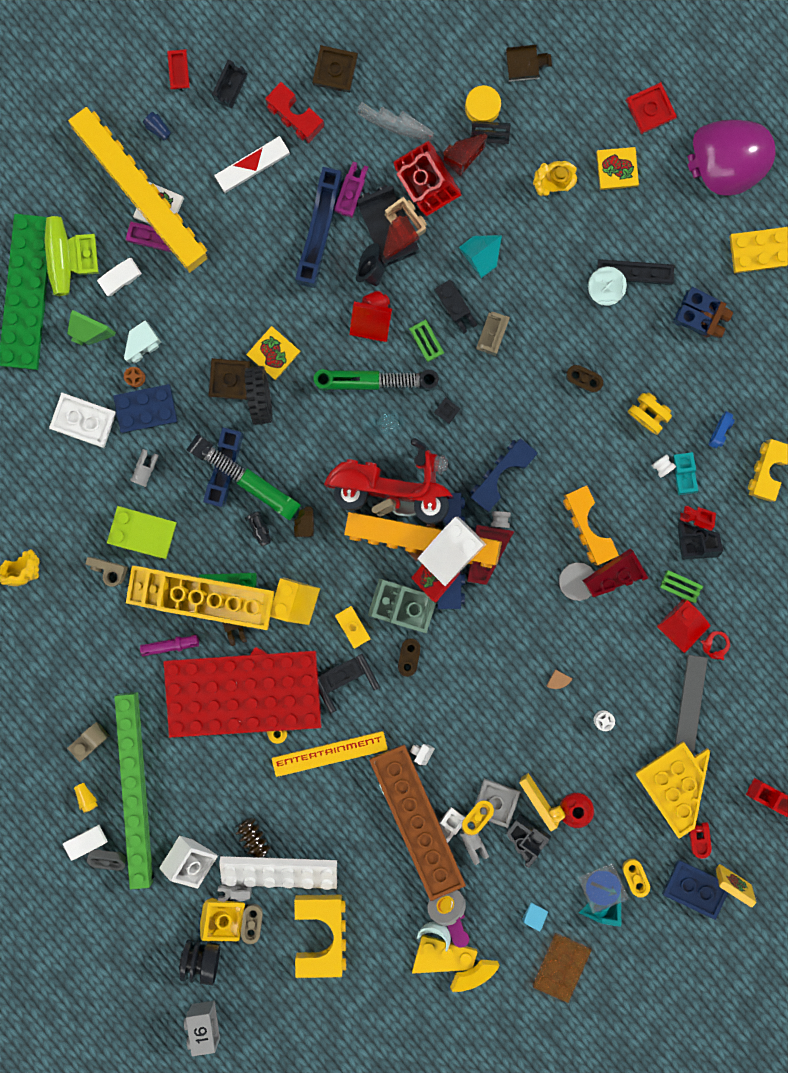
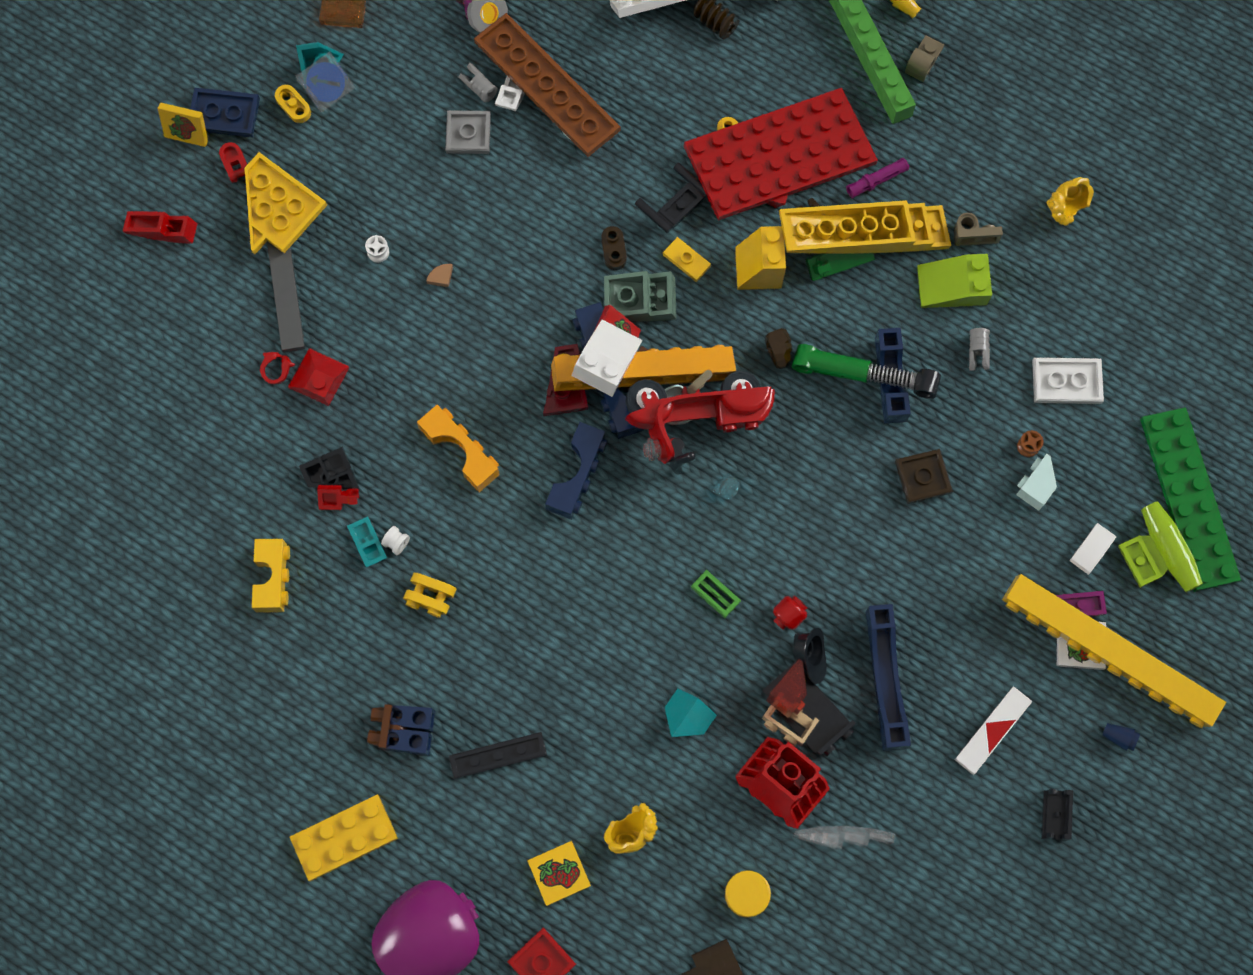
camera: 165 degrees right, 15 degrees down
(87, 330) = (1105, 476): bright green slope -> none
(145, 408) = (1003, 415): dark blue plate -> none
(178, 69) = (1124, 814): red tile -> none
(258, 395) = (884, 460): black tyre -> none
(259, 530) = (826, 325): black piece -> none
(273, 353) = (885, 522): yellow tile -> none
(306, 124) = (988, 812): red arch -> none
(329, 753) = (664, 125): yellow tile -> none
(335, 69) = (940, 878): dark brown plate -> none
(350, 191) = (866, 736): magenta hinge -> none
(370, 321) = (788, 589): red tile -> none
(373, 380) = (760, 527): piece -> none
(423, 753) = (565, 154): white tile -> none
(447, 410) = (664, 523): black tile -> none
(454, 304) = (697, 645): black hinge -> none
(464, 152) = (751, 823): clear red slope -> none
(477, 818) = (484, 106): yellow plate -> none
(492, 333) = (642, 626): dark tan hinge -> none
(498, 140) = (725, 860): black tile -> none
(500, 519) = (563, 421): light grey wheel -> none
(527, 838) = (422, 107): black slope -> none
(535, 916) = (389, 33): medium azure slope -> none
(550, 815) = (408, 135): yellow hinge -> none
(571, 581) = (453, 385): light grey tile -> none
(575, 800) = (378, 160): red piece -> none
(584, 378) = (518, 609): dark brown plate -> none
(607, 285) = (526, 725): light aqua tile -> none
(618, 572) = (411, 406): dark red wing -> none
(695, 592) = (334, 408): bright green tile -> none
(725, 422) = (341, 593): blue plate -> none

